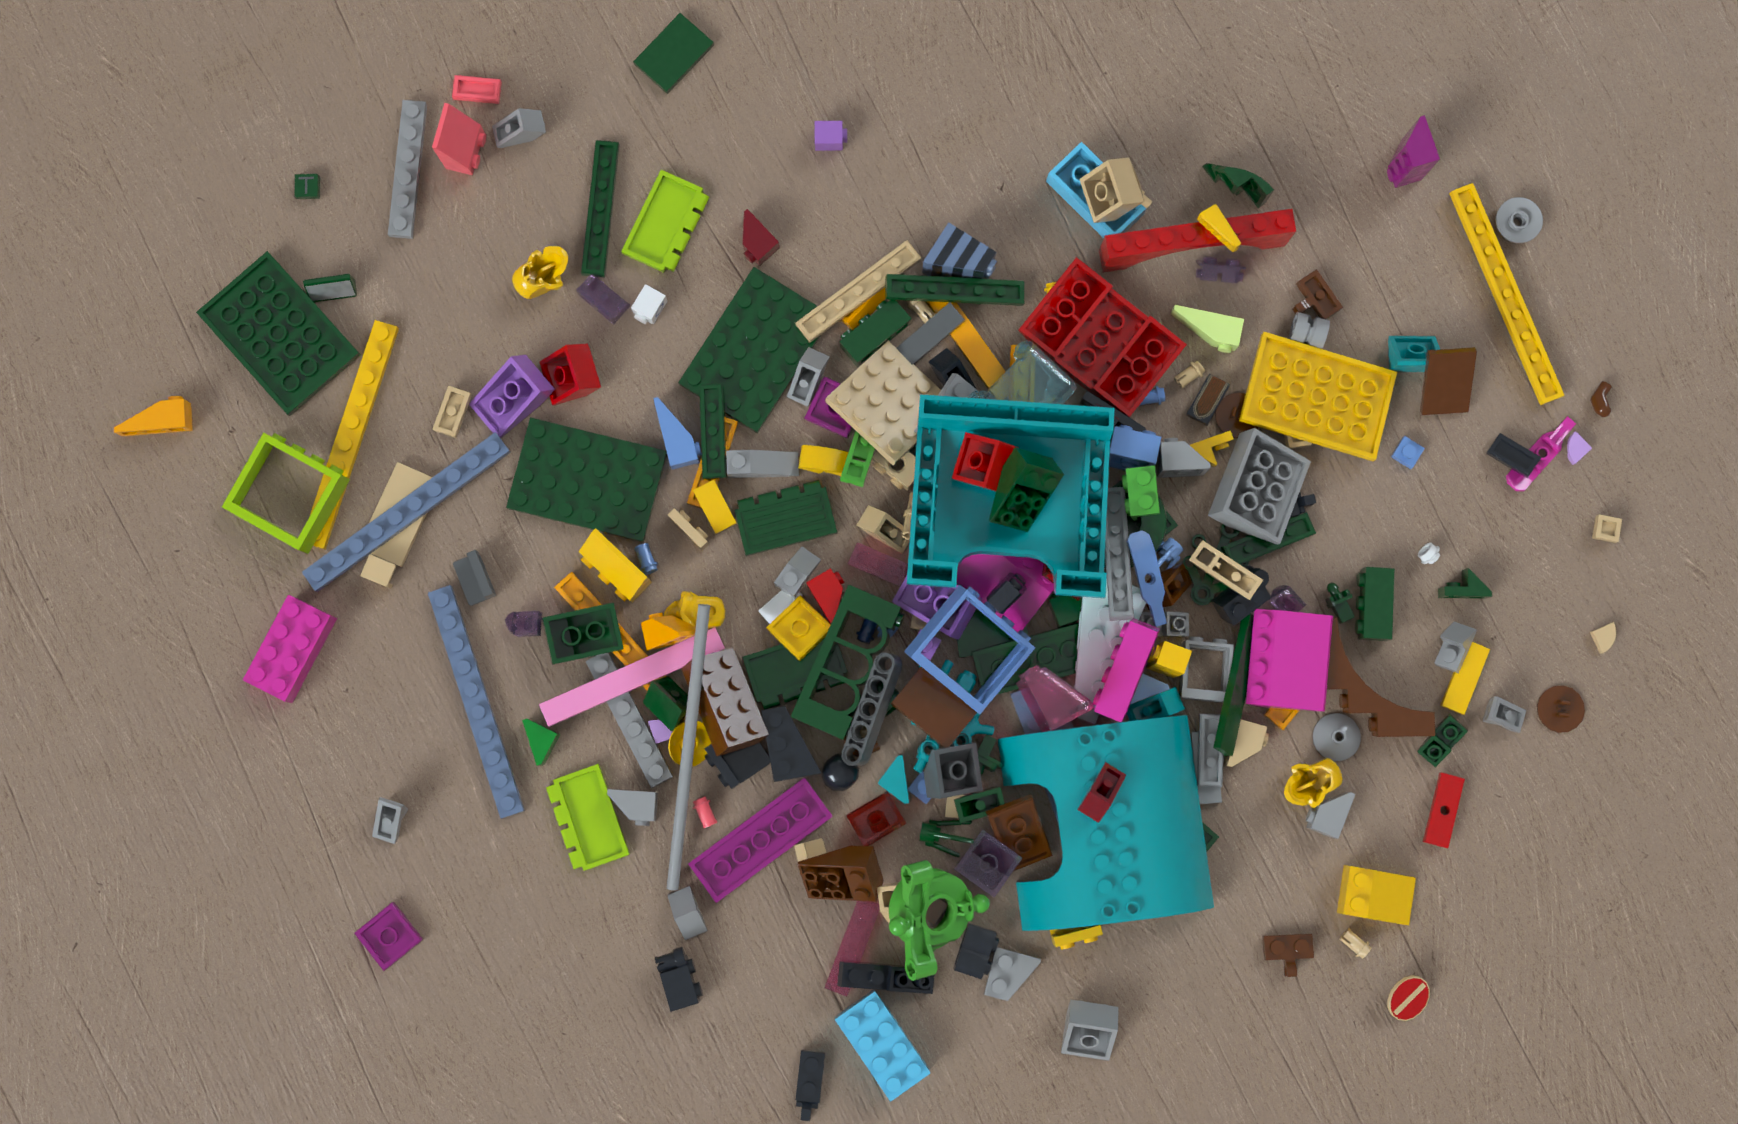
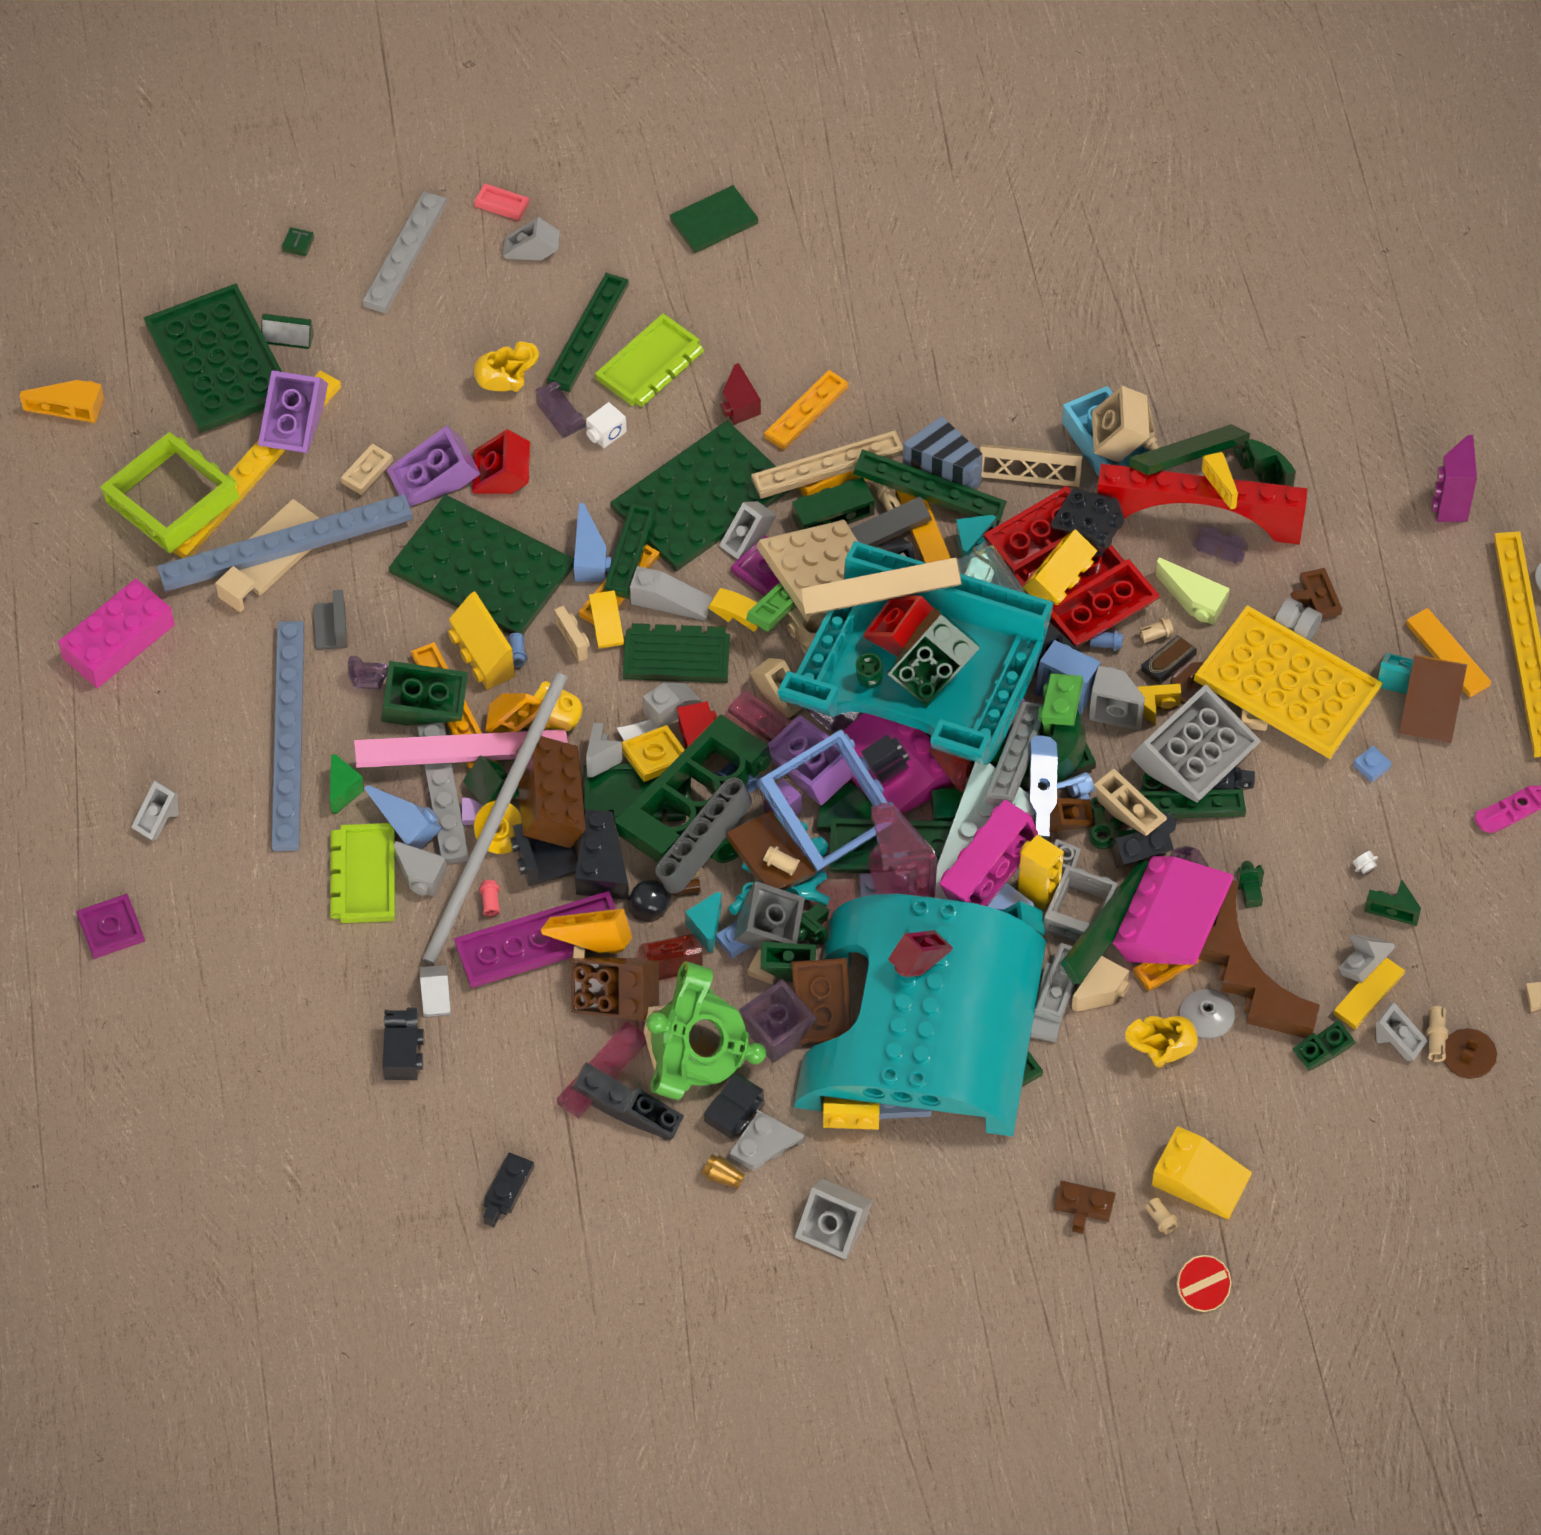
camera: 20 degrees right, 25 degrees down
(366, 379) = (292, 411): none -> medium lavender slope
(458, 140) = (465, 231): coral slope -> none
(606, 757) = (410, 821): none -> medium blue slope
(754, 646) = (601, 752): none -> light grey slope
(803, 829) = (593, 930): none -> light orange slope
(819, 233) = (806, 410): none -> light orange tile
(829, 135) = (847, 325): medium lavender brick -> none
(882, 1045) = (600, 1167): medium azure brick -> none
(932, 833) = (726, 982): dark green plant -> none
(947, 718) = (781, 860): none -> tan pin
(959, 436) = (881, 586): none -> tan tile
(969, 514) = (869, 664): none -> dark green wheel
(983, 1014) = (721, 1171): none -> pearl gold cone
(1003, 325) = (971, 532): none -> teal slope
(1035, 227) = (1032, 455): none -> tan fence
(1097, 349) = (1061, 568): none -> yellow brick
(1105, 287) = (1092, 515): none -> black bracket
(1172, 190) = (1189, 449): none -> dark green tile
(1330, 815) = (1173, 1080): light grey slope -> none
(1375, 604) = (1289, 892): dark green brick -> none
(1439, 319) = (1445, 647): none -> light orange tile
(1446, 794) = (1309, 1100): red tile -> none
(1513, 455) = (1488, 794): black tile -> none
(1532, 702) = (1437, 1033): none -> tan pin

